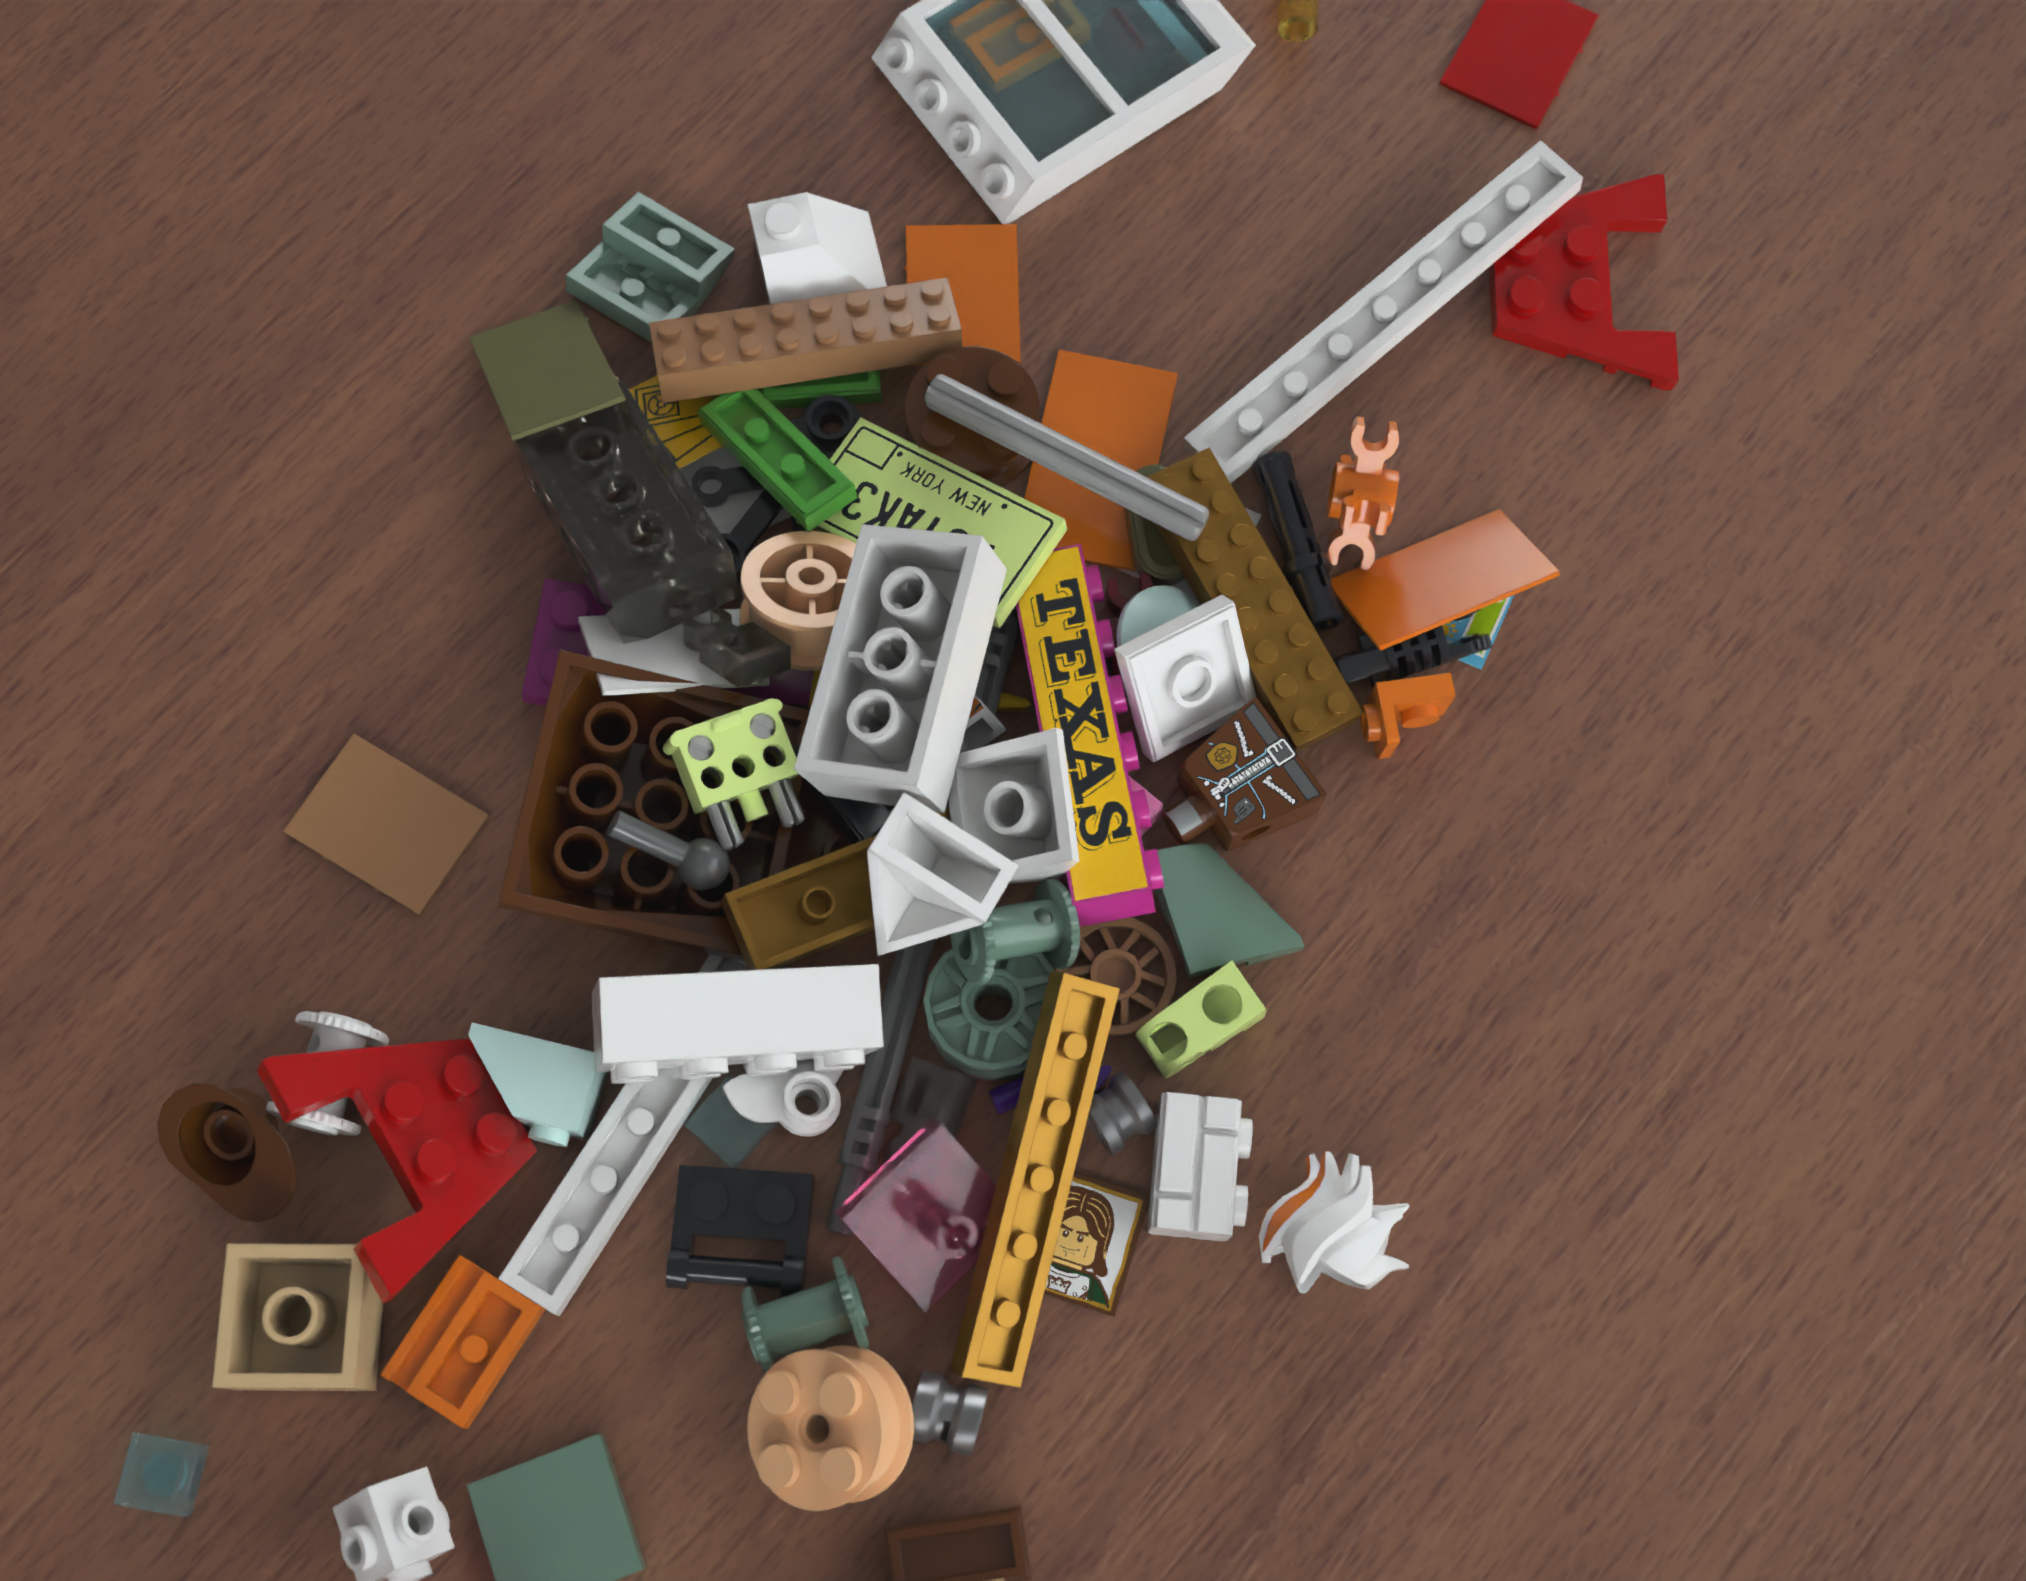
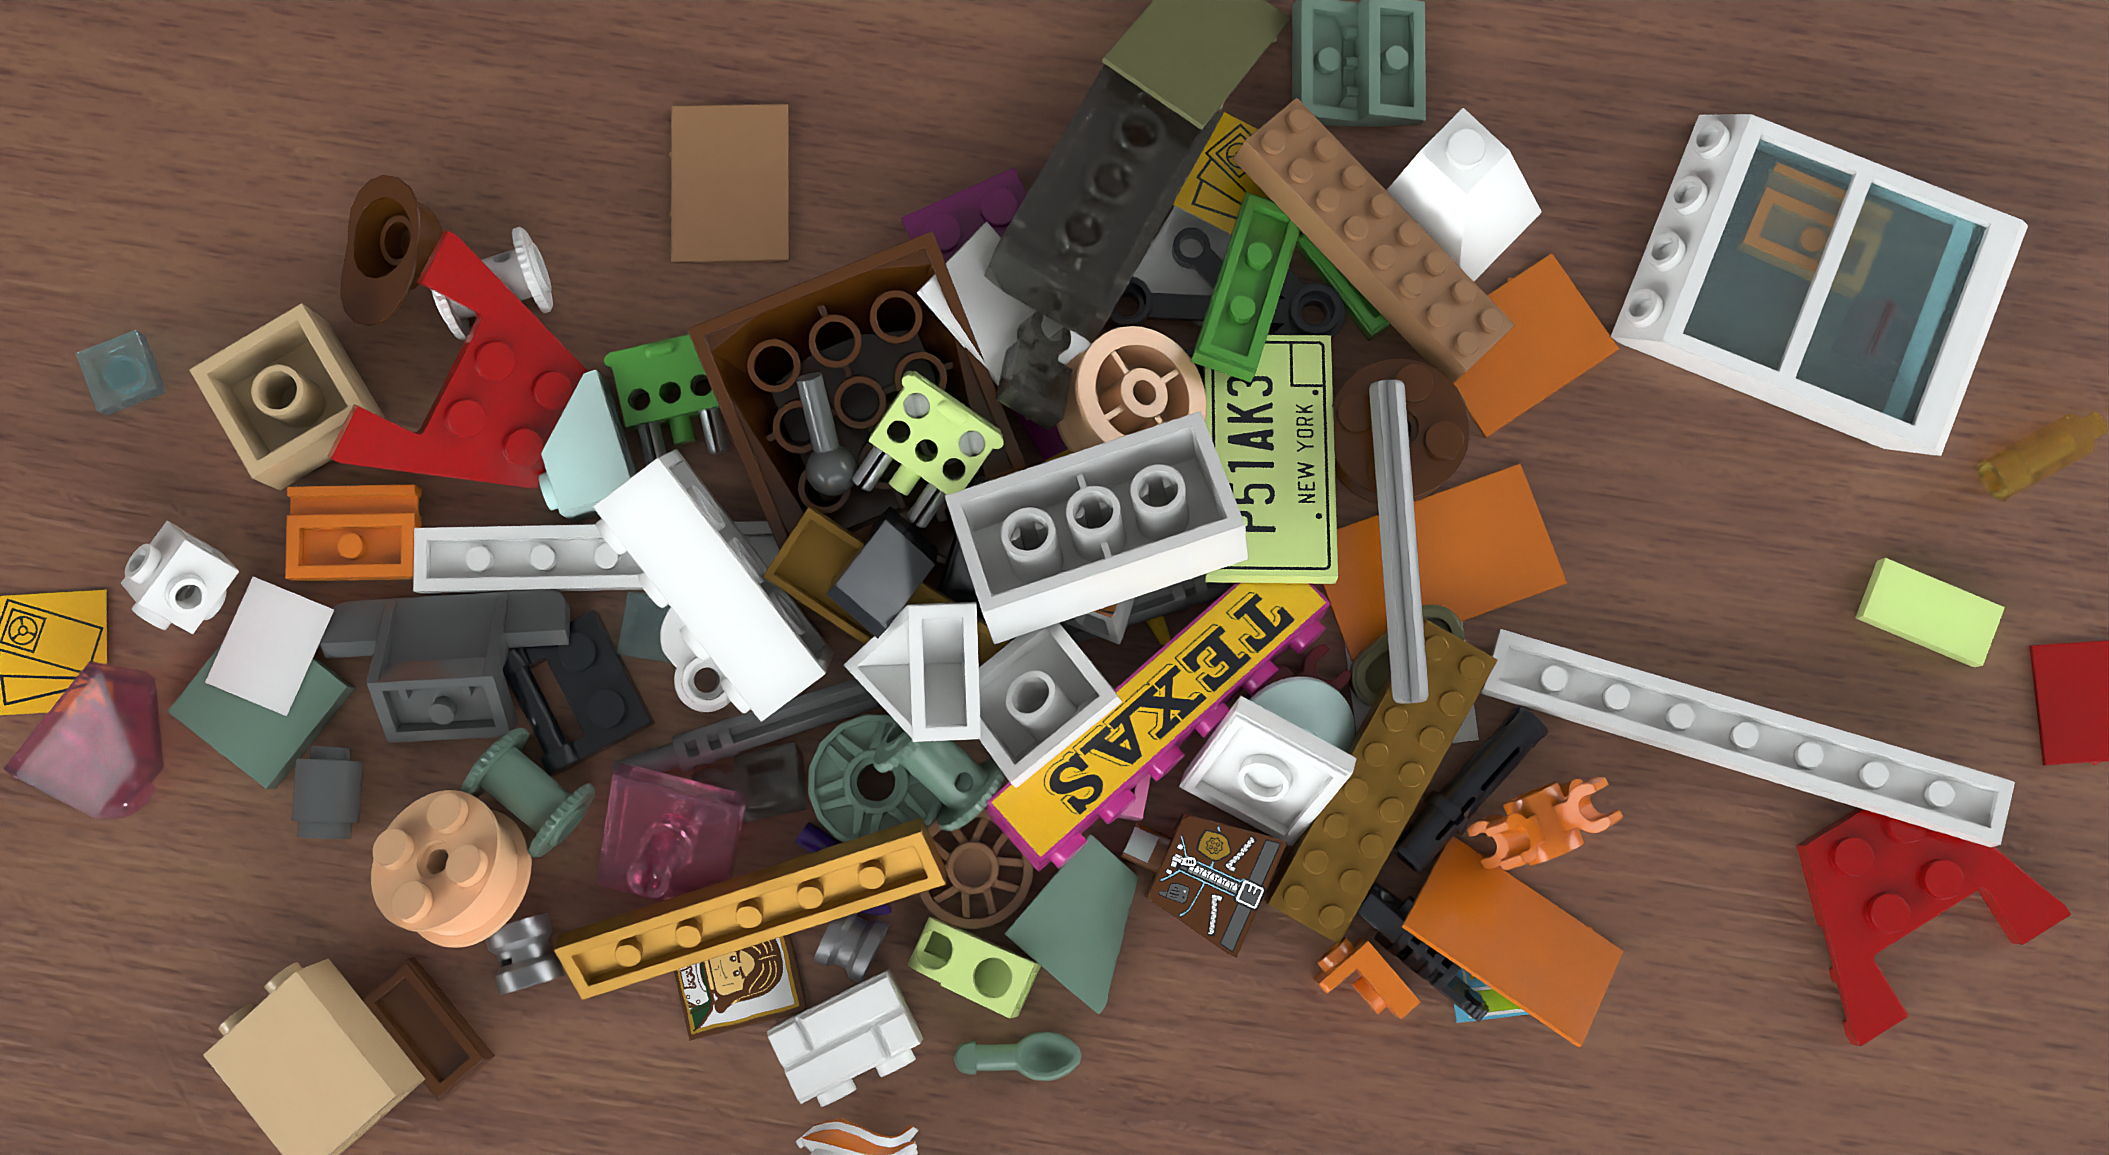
camera: 60 degrees right, 10 degrees up
(512, 961) = (655, 371): none -> bright green piece
(513, 1484) = (269, 646): none -> white sticker
(634, 1324) = (444, 657): none -> dark grey plate
(684, 1510) = (327, 793): none -> dark grey brick
(823, 865) = (883, 572): none -> slope
(1309, 1018) = (1036, 1056): none -> sand green piece
(1369, 132) = (1930, 612): none -> yellowish green tile

